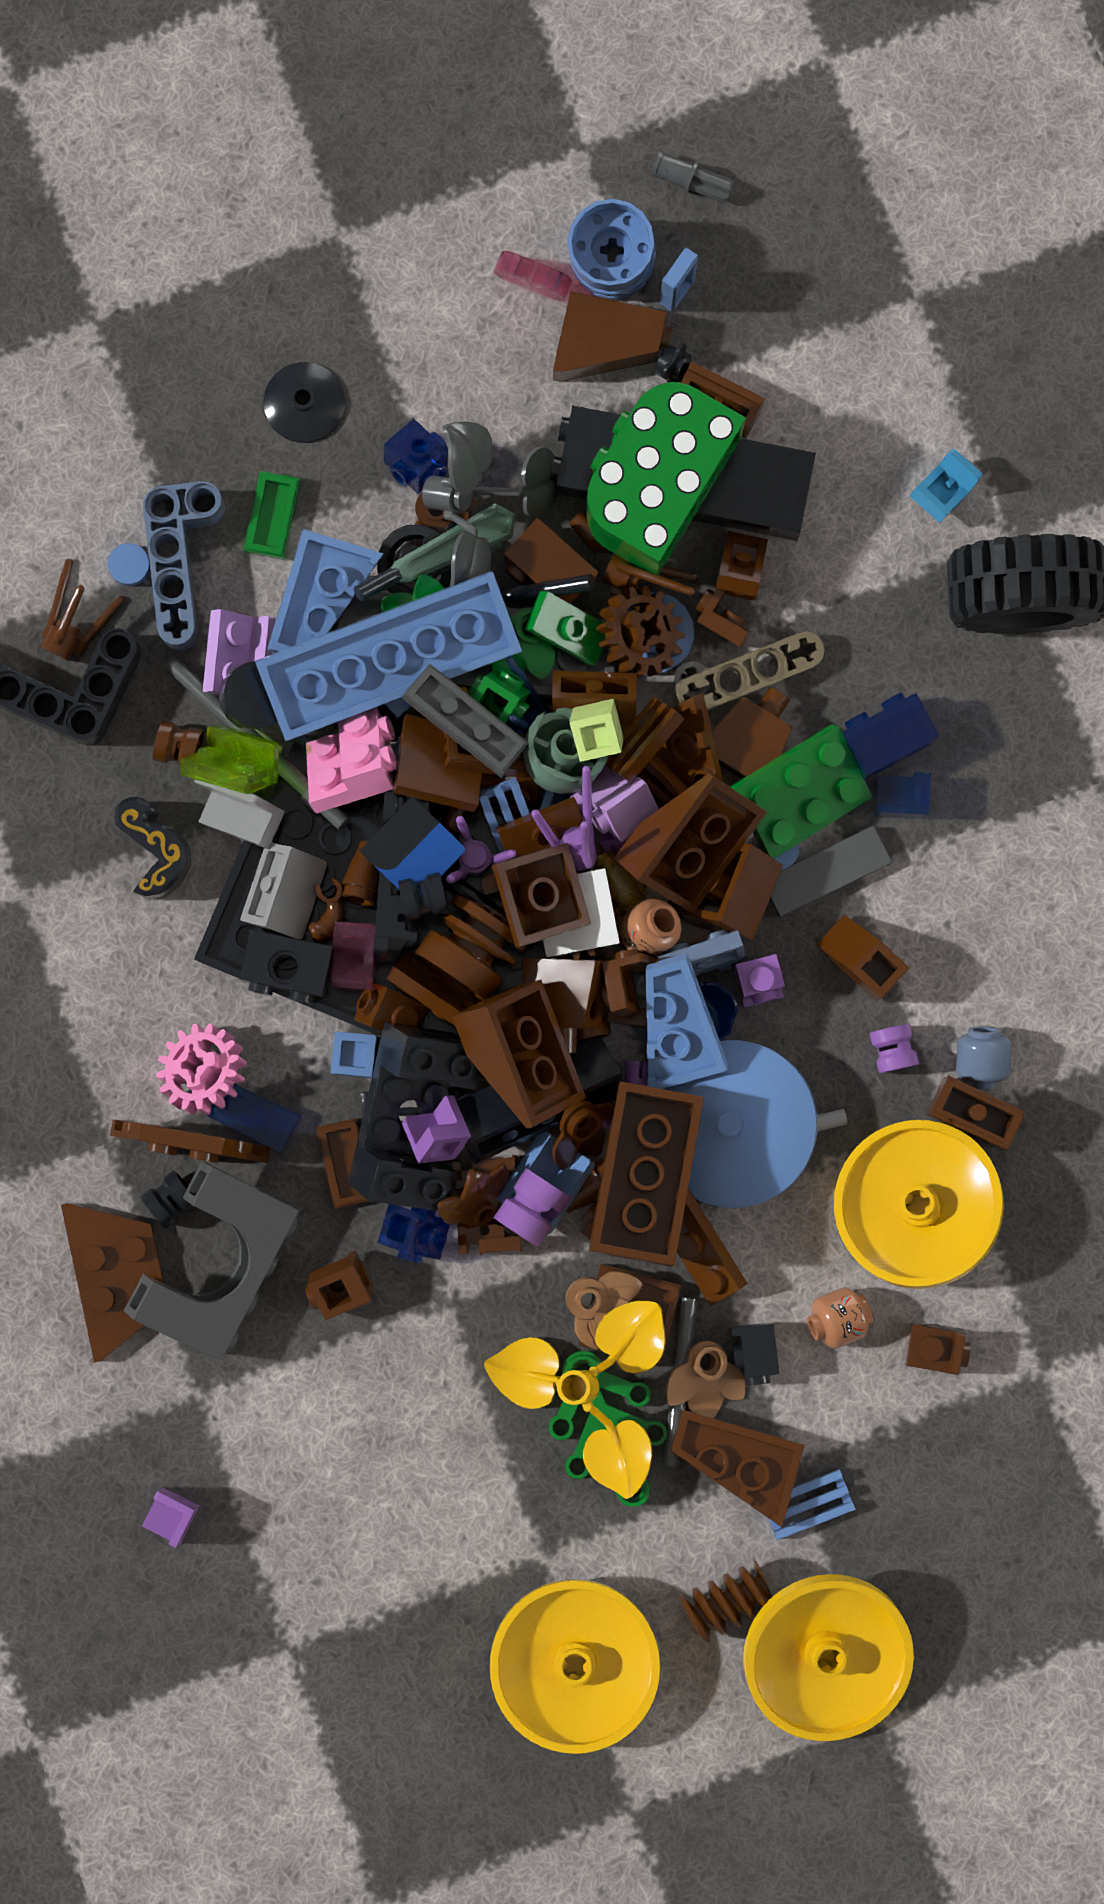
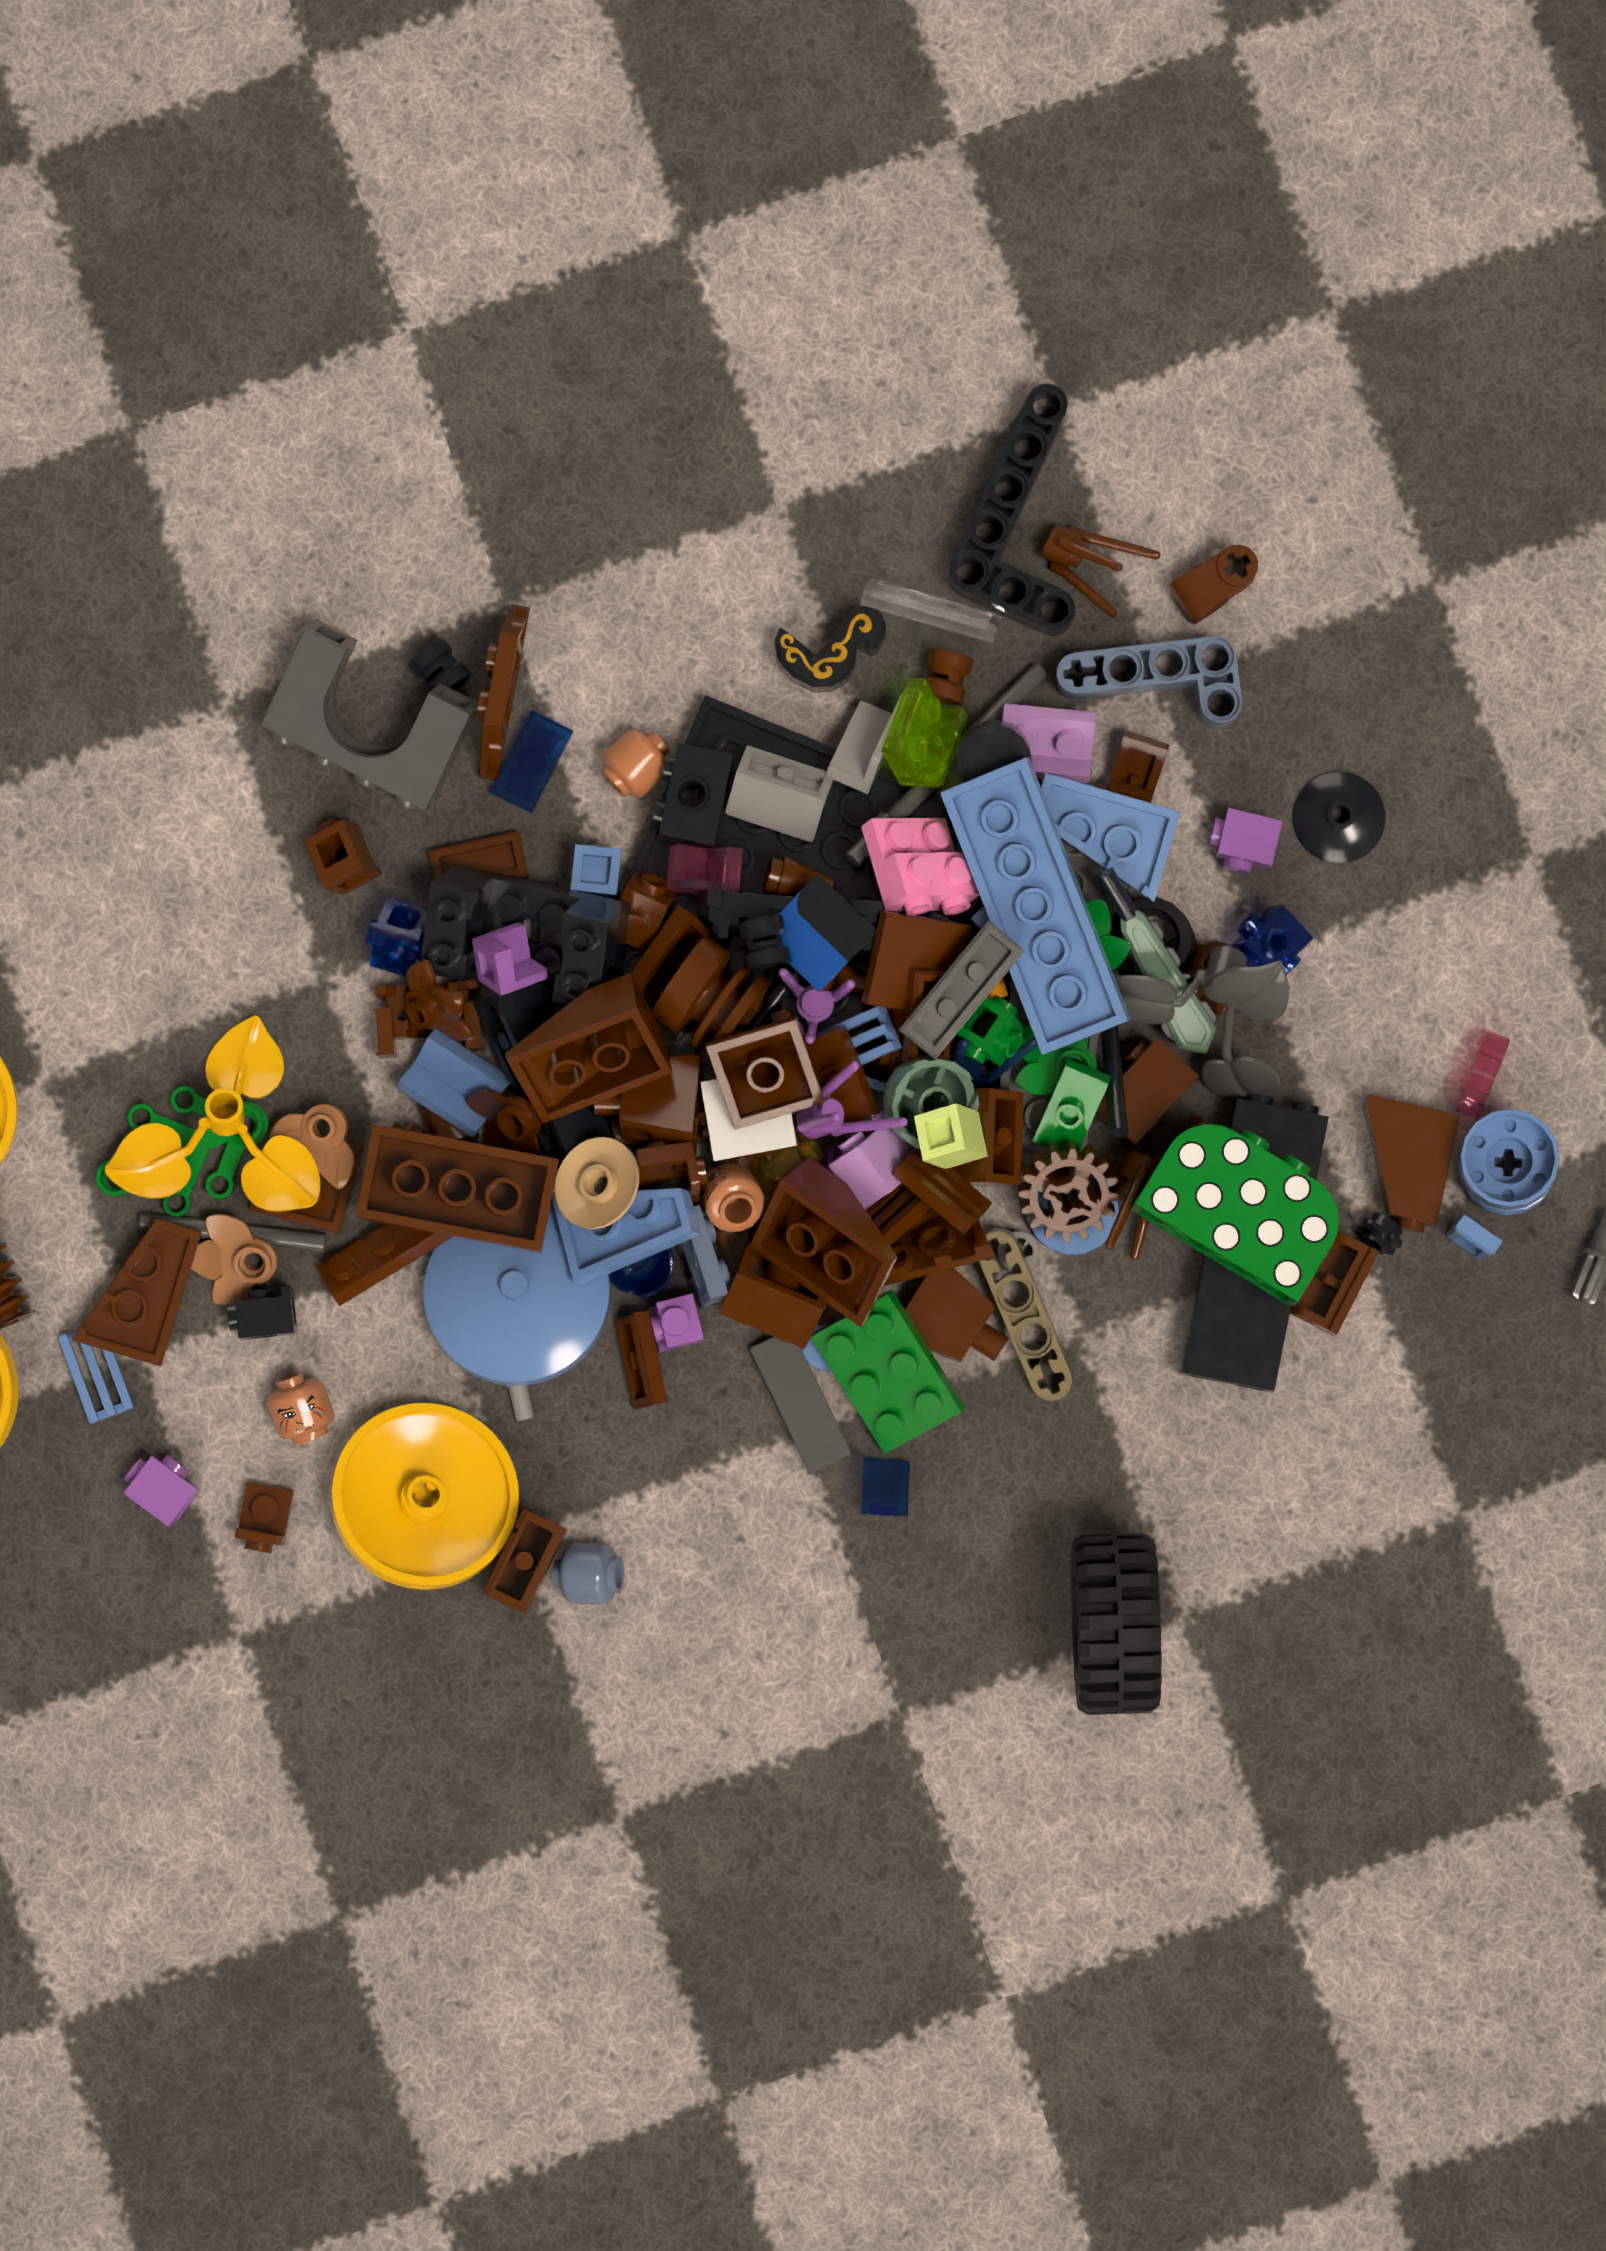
camera: 90 degrees right, 0 degrees up
(96, 511) = (1209, 587): none -> reddish brown piece
(108, 1263) = (370, 603): reddish brown wing -> none
(117, 758) = (930, 610): none -> clear tile
(129, 564) = (1152, 621): medium blue tile -> none
(170, 1516) = (93, 672): medium lavender panel -> none
(201, 1069) = (586, 699): bright pink gear -> none
(255, 1021) = (635, 763): none -> nougat head
(259, 575) = (1138, 767): none -> reddish brown bracket
(272, 515) = (1208, 781): green tile -> none
(324, 928) = (737, 837): reddish brown arm -> none
(325, 480) = (1245, 840): none -> medium lavender brick
(532, 1207) = (423, 1065): medium lavender wheel -> none
(637, 1063) = (583, 1175): none -> tan dish
(726, 624) = (1080, 1287): reddish brown bracket -> none
(742, 565) = (1148, 1308): reddish brown slope -> none
(793, 1012) = (640, 1360): none -> reddish brown tile
(862, 957) = (701, 1437): reddish brown slope -> none
(889, 735) = (952, 1471): clear blue brick -> none
(898, 1057) = (588, 1475): medium lavender wheel -> none
(913, 1443) = (161, 1488): none -> medium lavender brick
(946, 485) = (1238, 1541): dark azure bracket -> none

